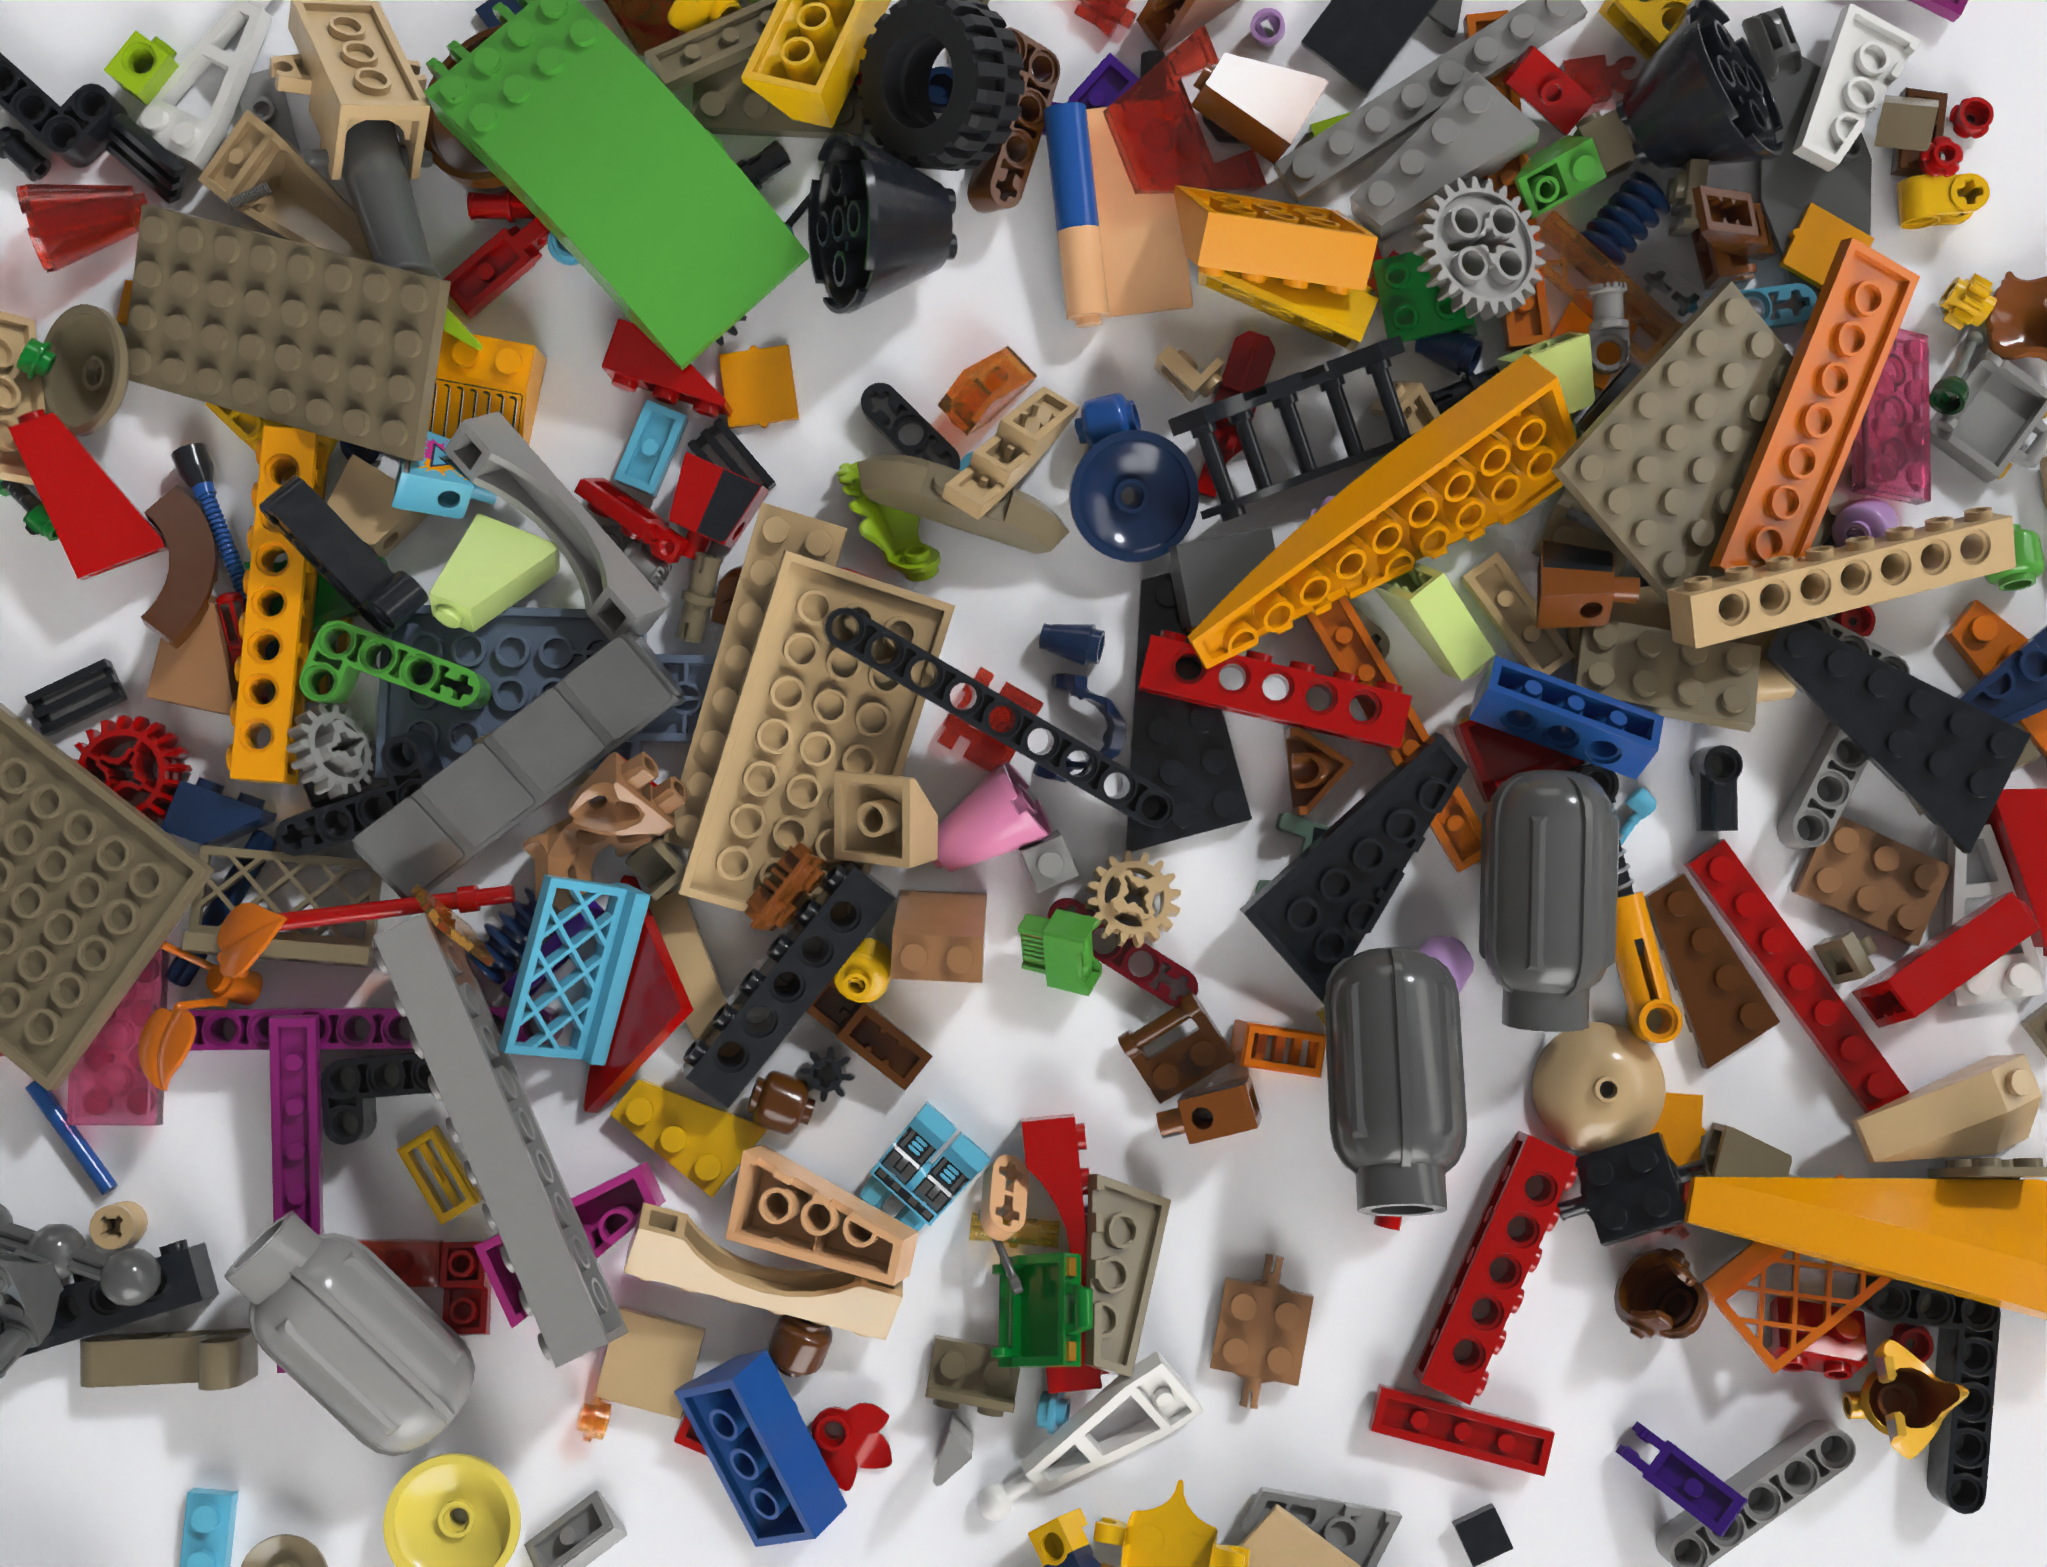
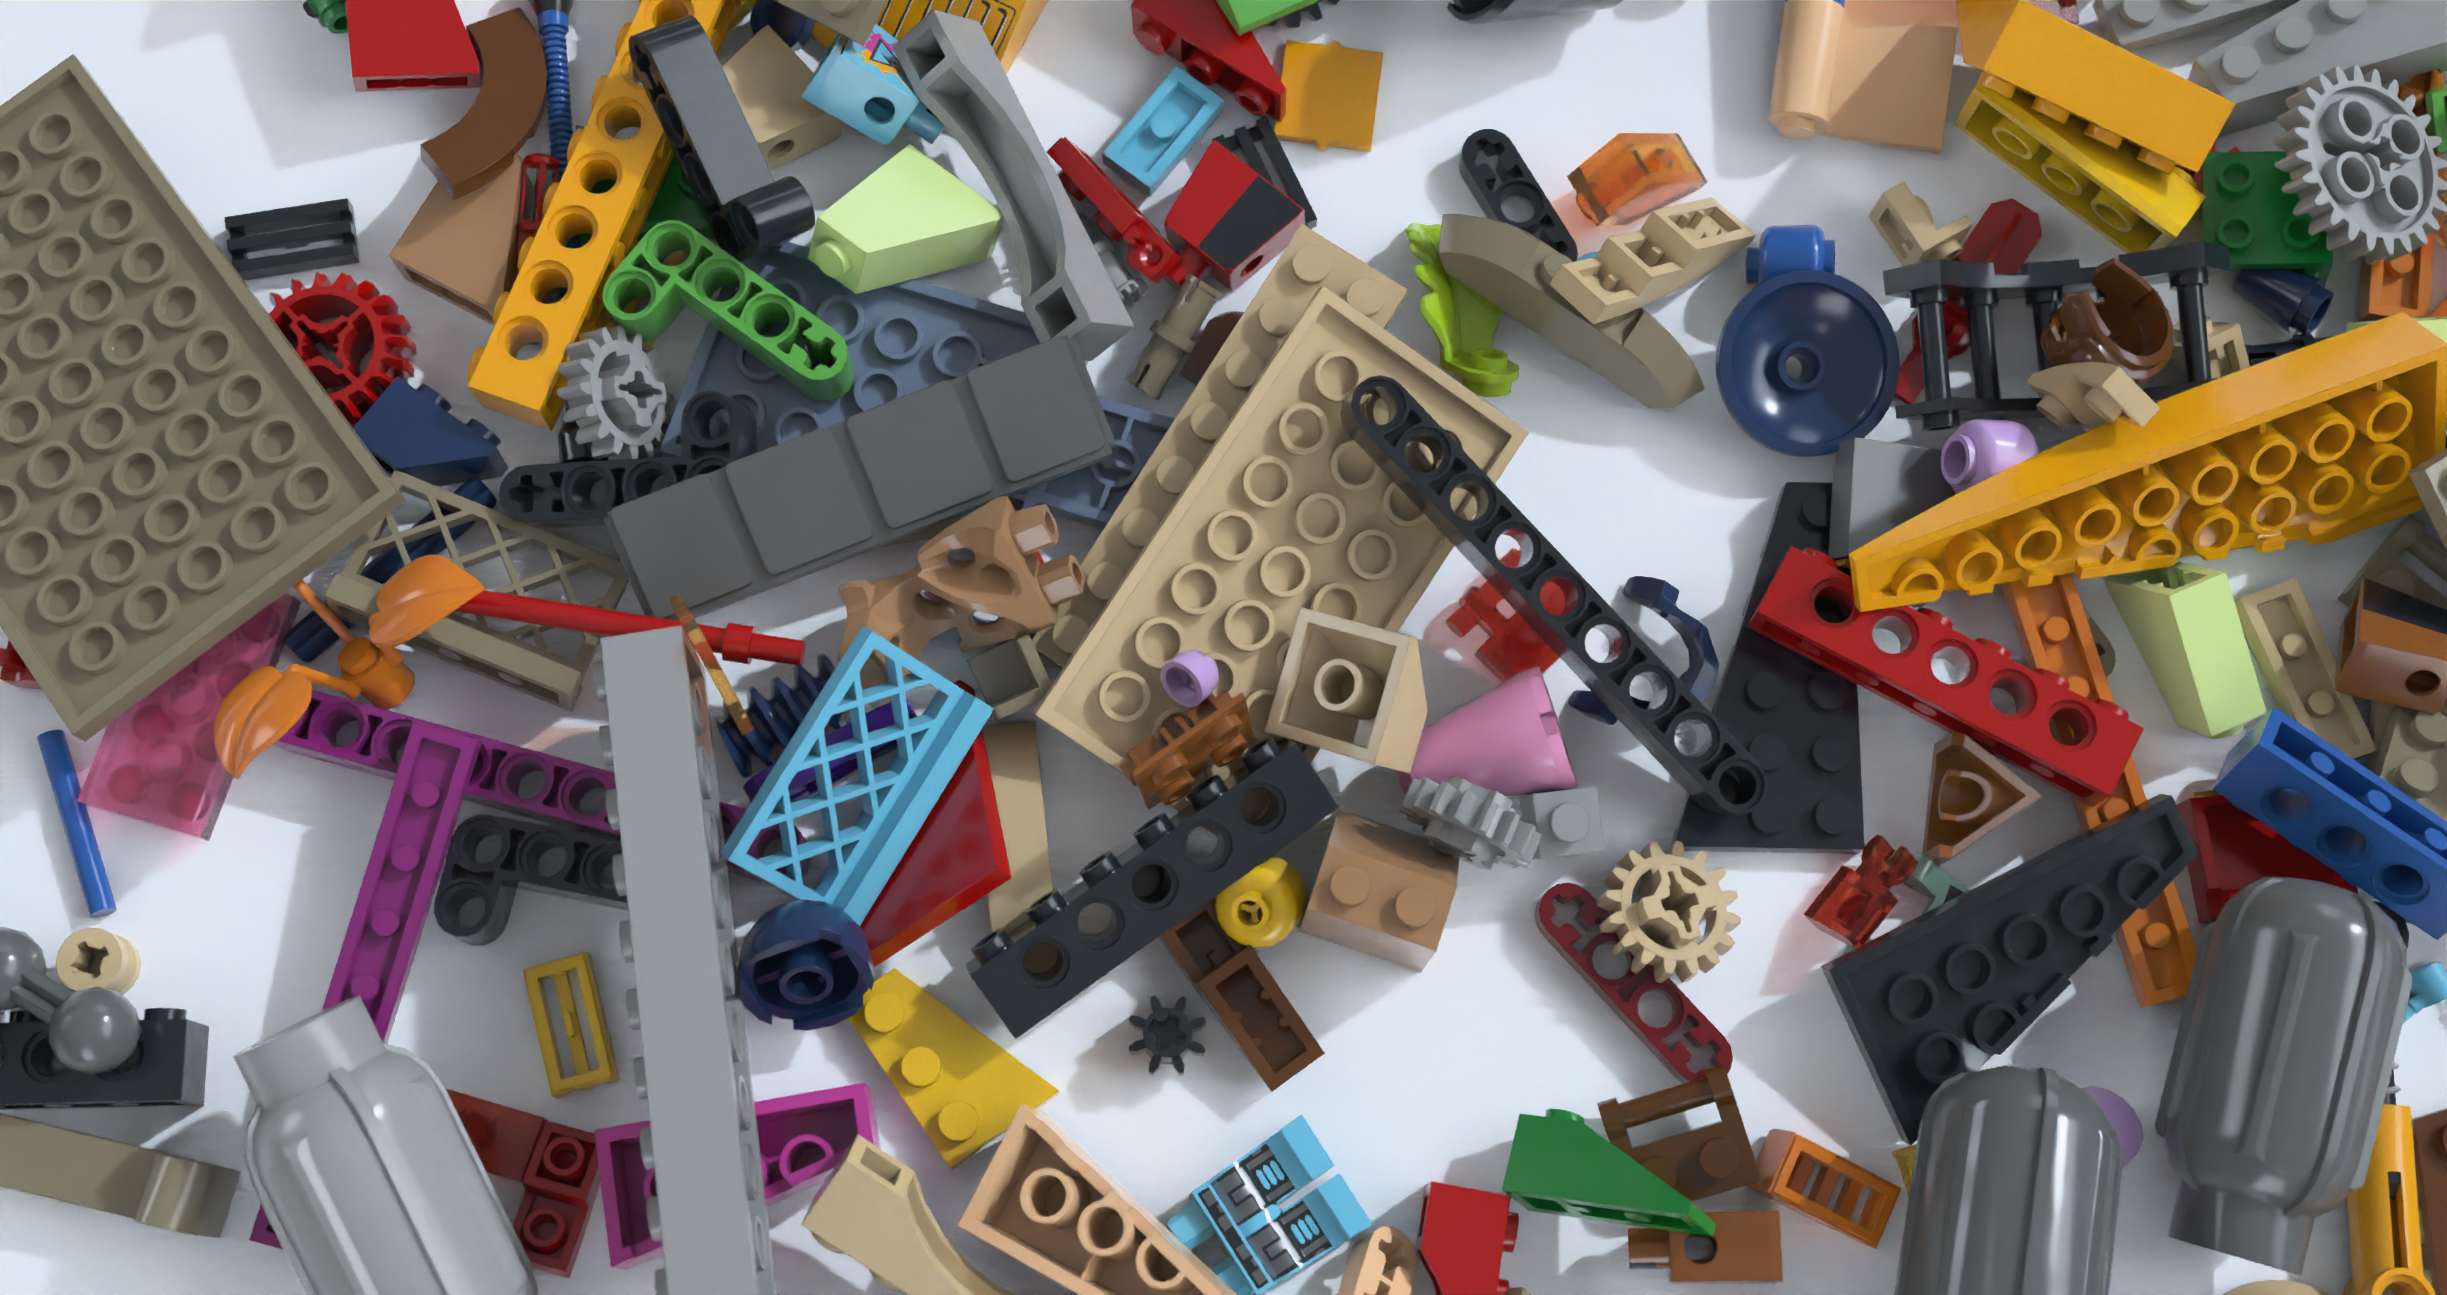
camera: 15 degrees right, 10 degrees down
(576, 1100) = (805, 965): none -> dark blue cylinder
(773, 841) = (1183, 670): none -> lavender hinge
(780, 1102) = (1089, 1057): reddish brown head -> none
(984, 884) = (1470, 822): none -> light grey gear
(1061, 950) = (1550, 951): bright green piece -> none
(1074, 642) = (1672, 538): dark blue cone -> none
(1121, 1089) = (1574, 1172): none -> green slope
(1254, 855) = (1861, 899): none -> clear red plate
(1265, 530) = (1983, 450): none -> lavender head
(1325, 475) = (2090, 395): none -> tan slope
(1333, 426) = (2124, 331): none -> reddish brown helmet

